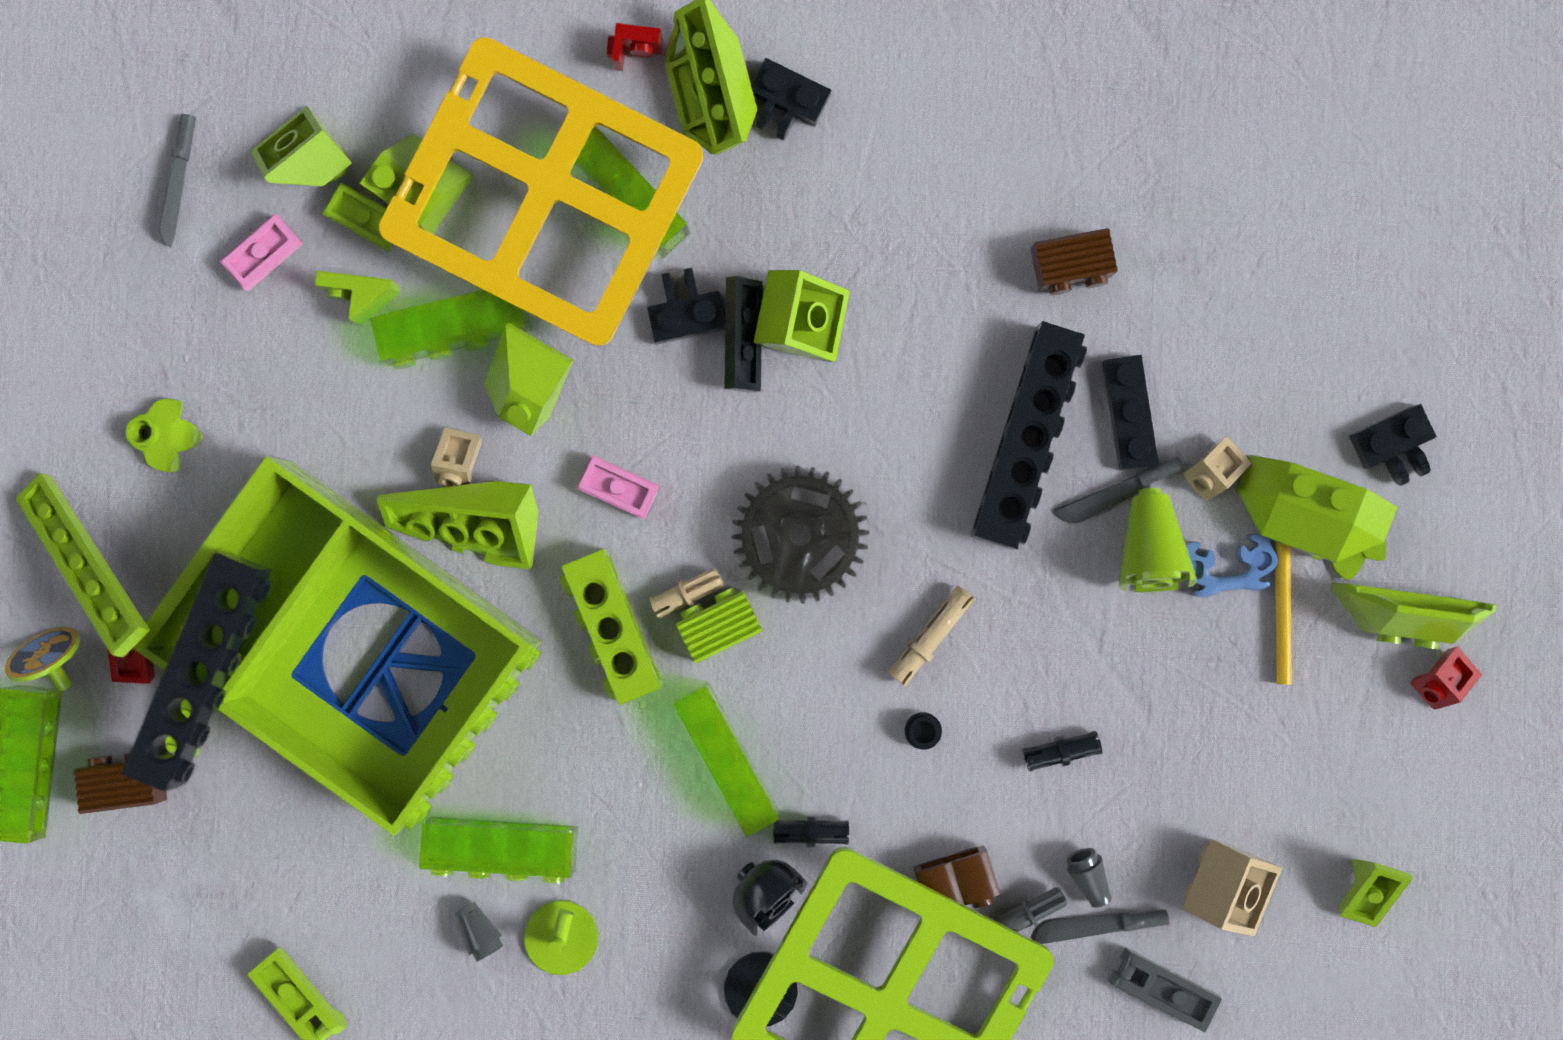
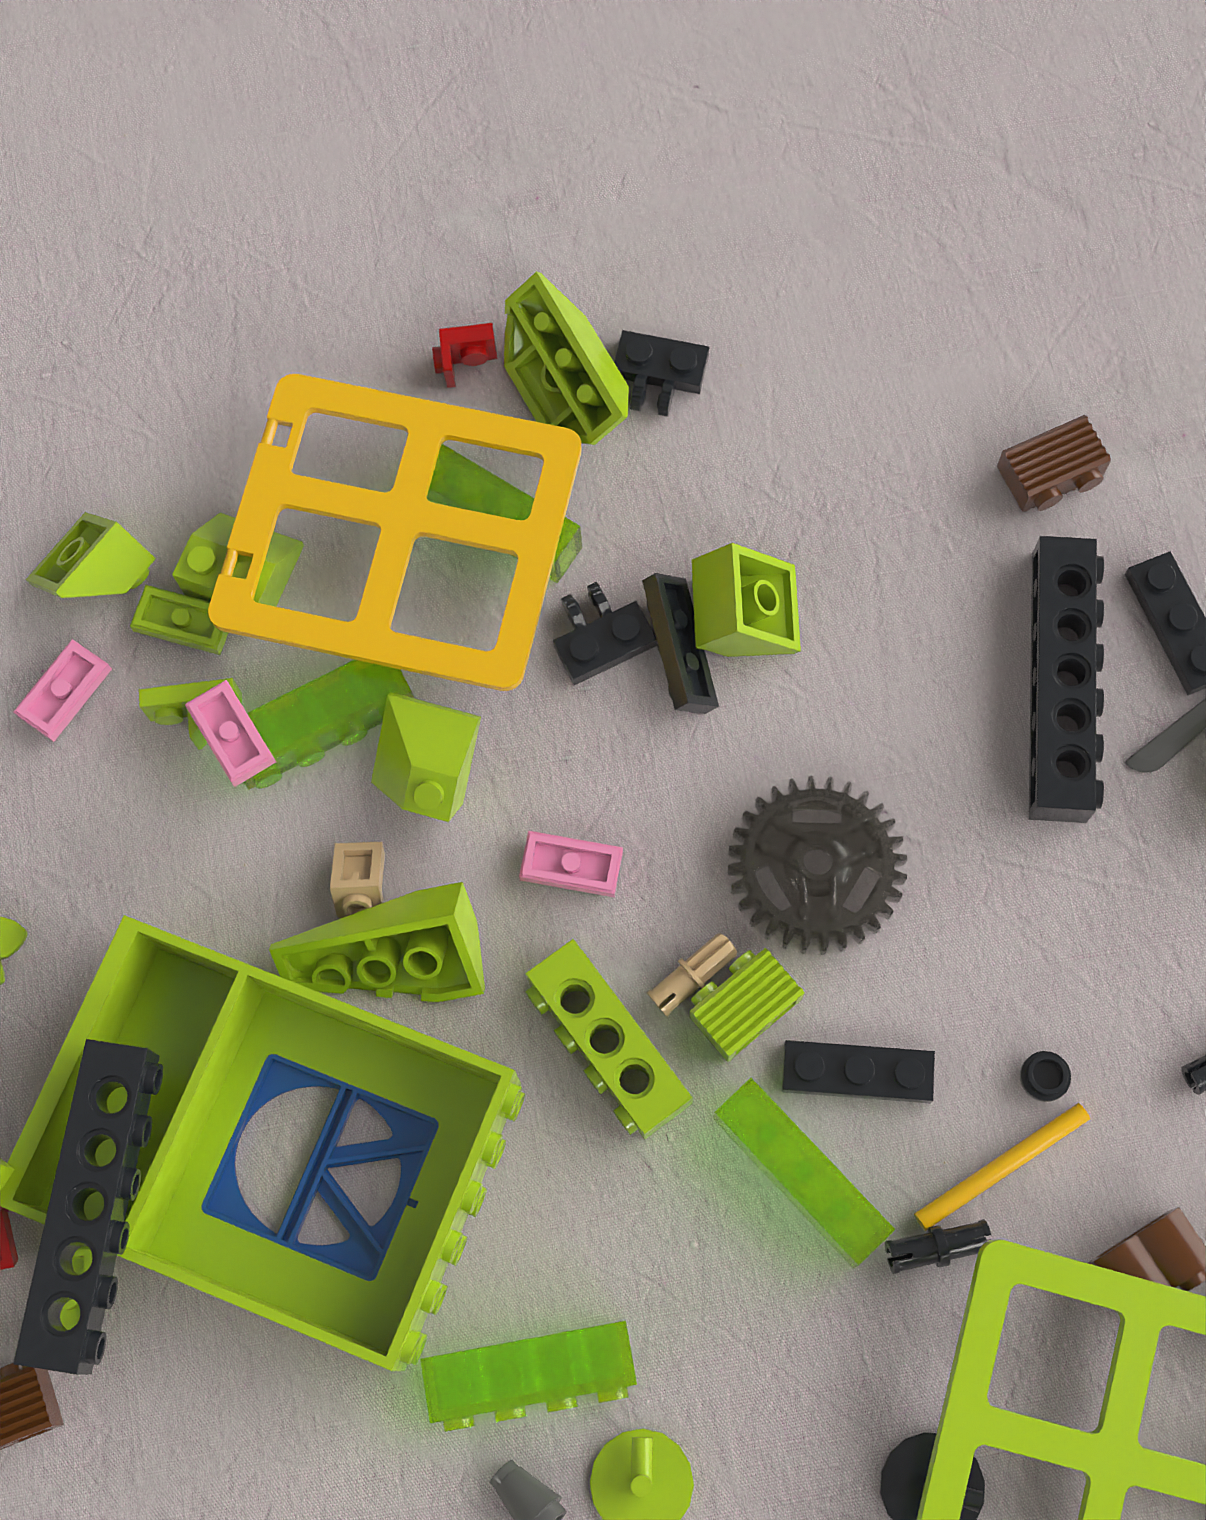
camera: 15 degrees left, 15 degrees down
(378, 326) = (230, 733): none -> bright pink plate
(765, 893) = (904, 1341): black cylinder -> none
(789, 693) = (858, 1071): none -> black plate
(873, 786) = (1001, 1166): none -> yellow bar
(931, 635) = (1013, 965): tan pin -> none

